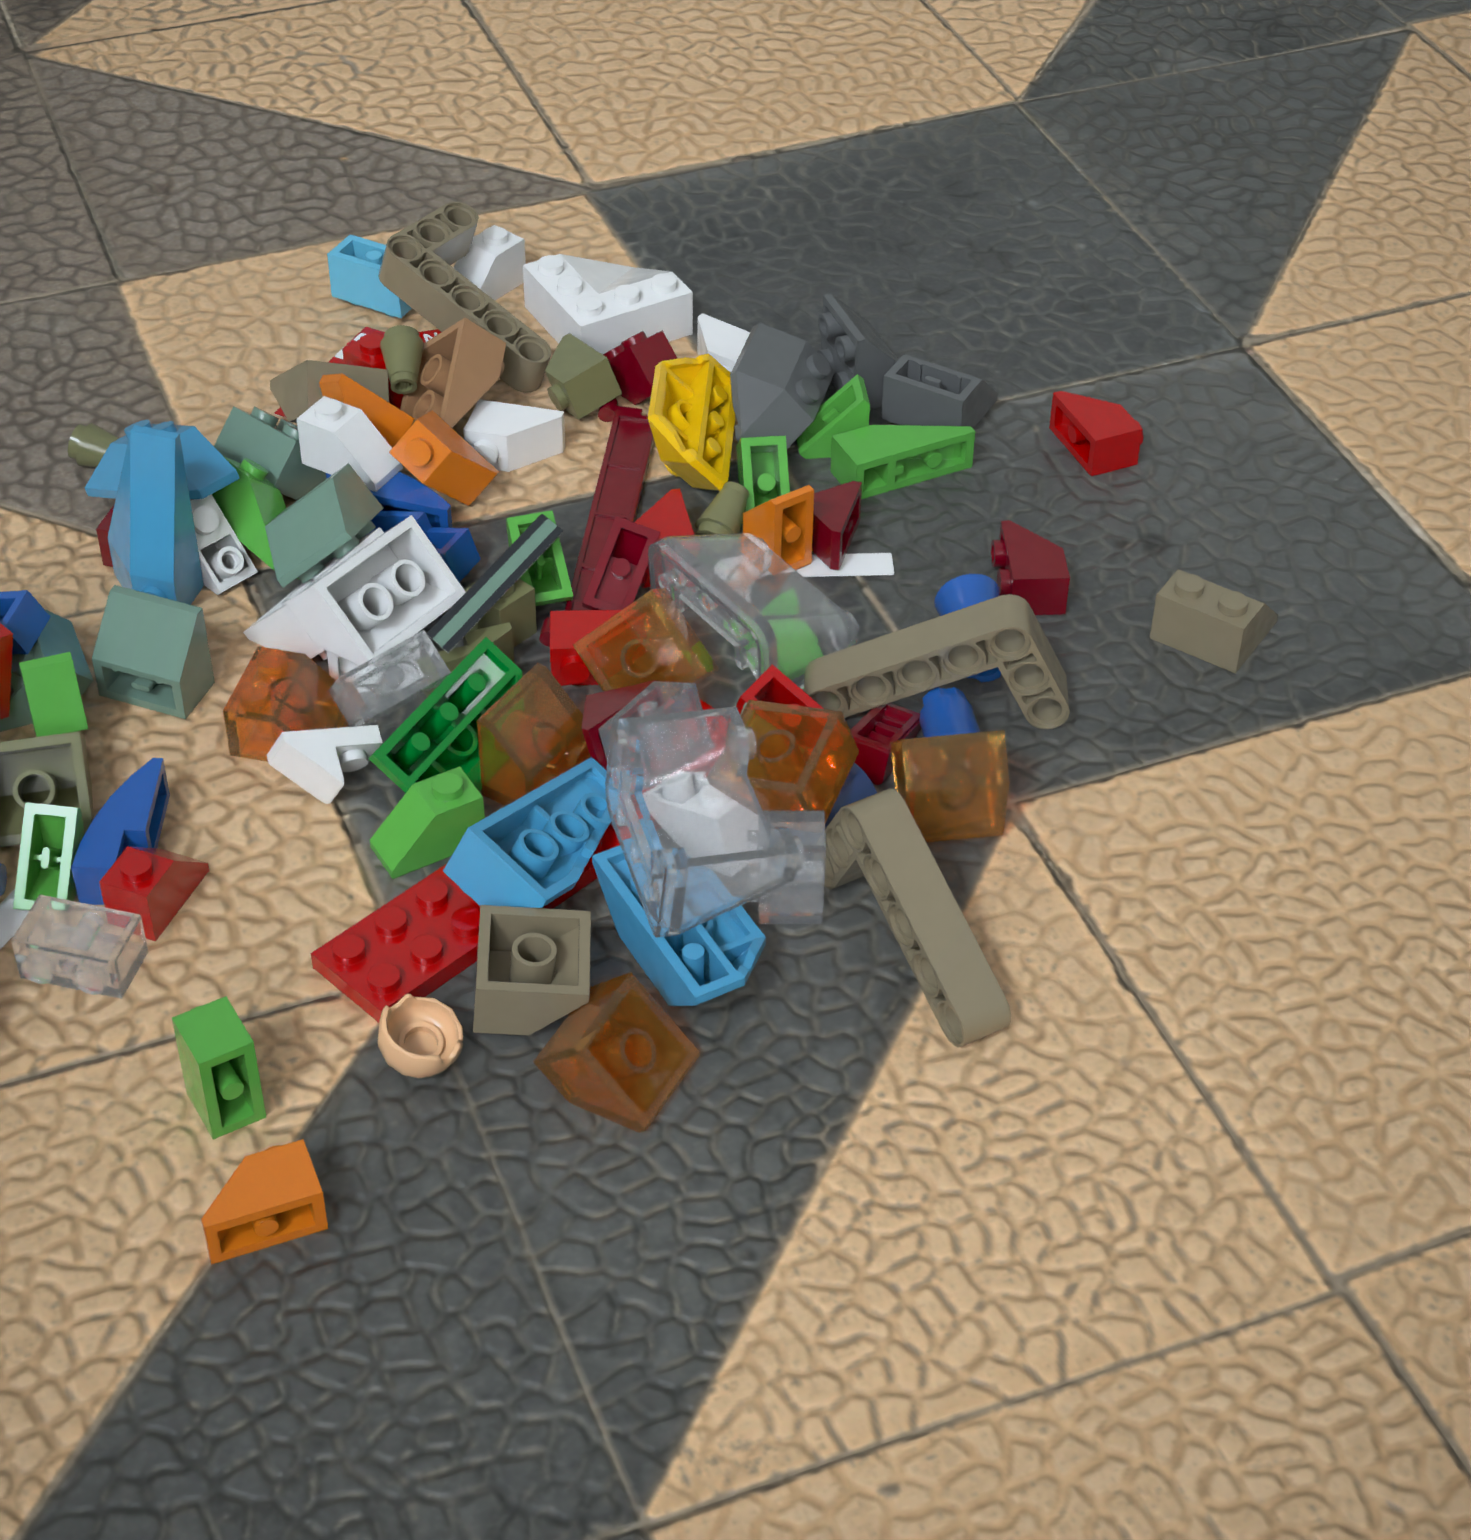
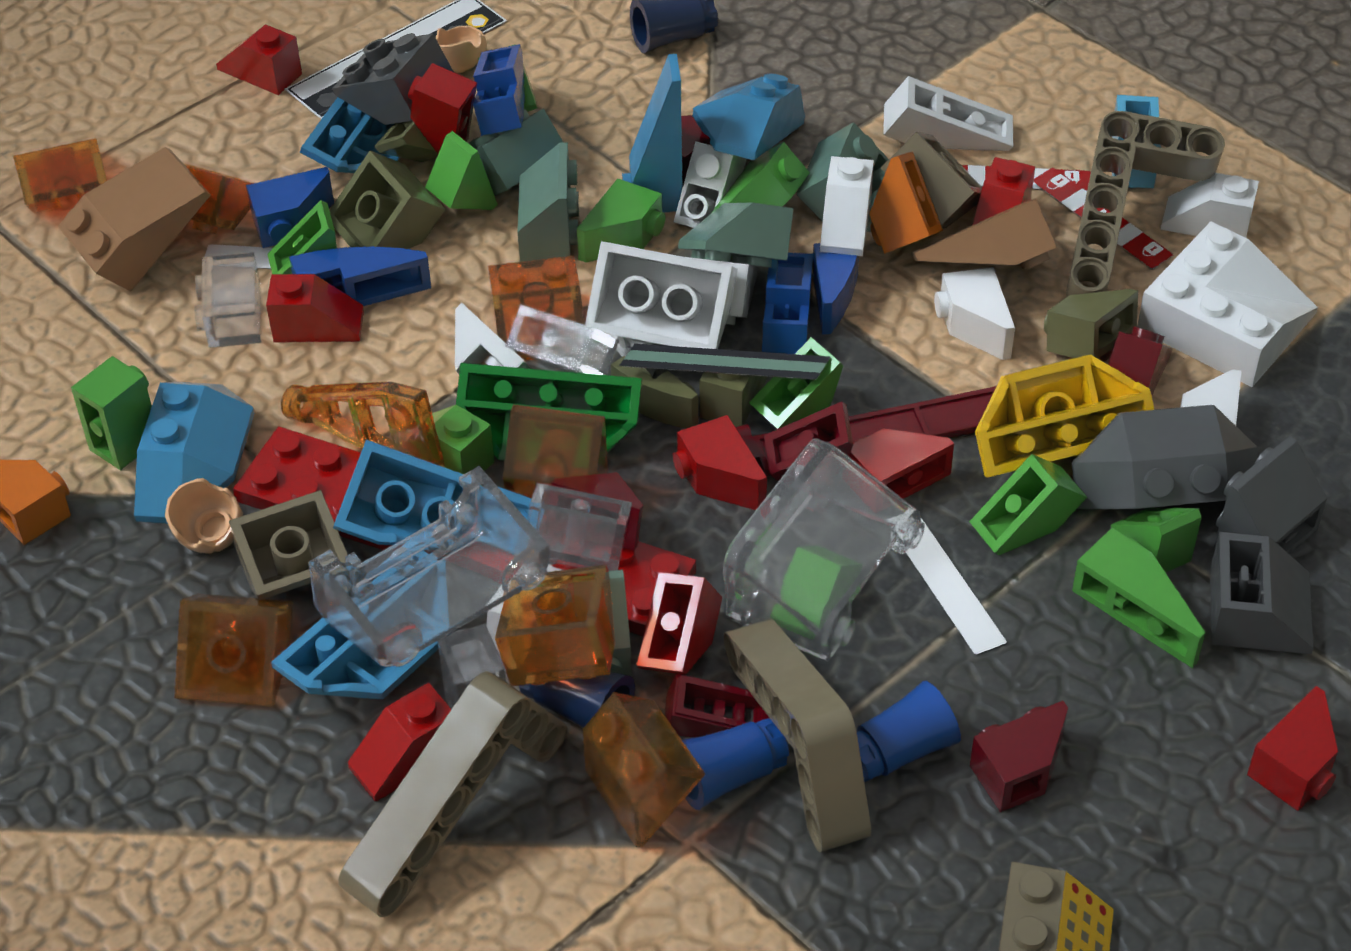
camera: 70 degrees right, 5 degrees up
(89, 444) = (800, 73): olive cone -> none
(219, 611) = (624, 217): none -> bright green slope
(238, 376) = (946, 116): none -> white slope
(307, 1035) = (188, 436): none -> dark azure wedge
(402, 357) = (996, 194): olive cone -> none
(431, 822) = (405, 410): none -> clear orange plate
(443, 459) = (884, 271): orange slope -> none
(645, 645) = (704, 497): clear orange slope -> none
(724, 512) = (951, 493): olive cone -> none
(785, 525) = (943, 538): orange slope -> none
(817, 949) = (397, 740): none -> red slope
(835, 522) = (999, 576): dark red slope -> none

